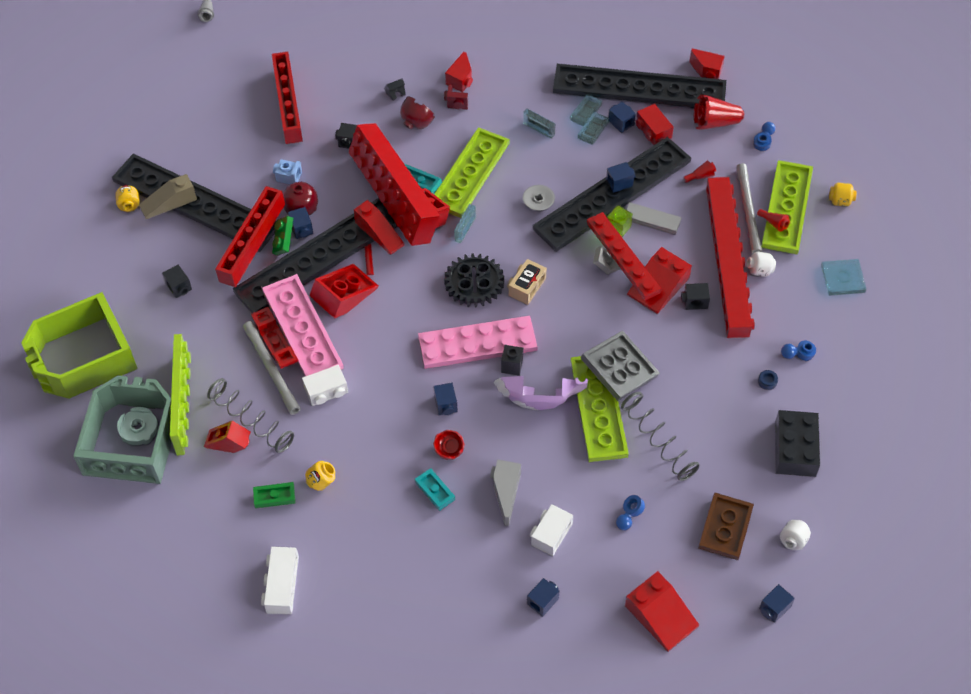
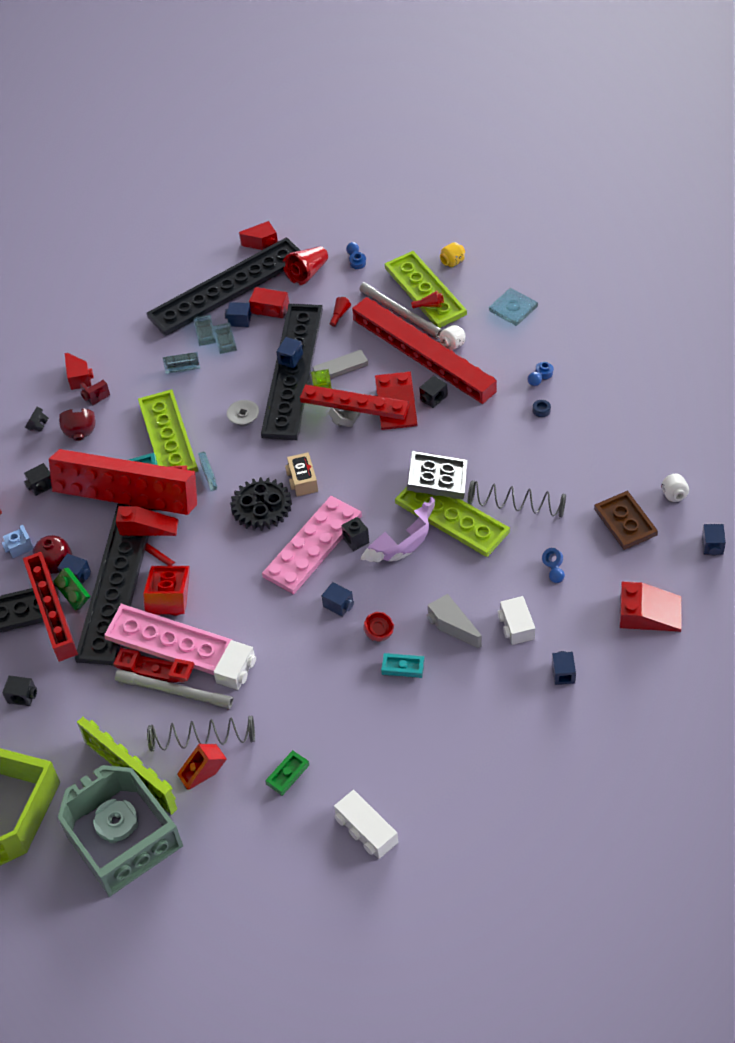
camera: 40 degrees left, 5 degrees down
(320, 475) = (308, 727): yellow head -> none
(797, 443) = (609, 430): black brick -> none

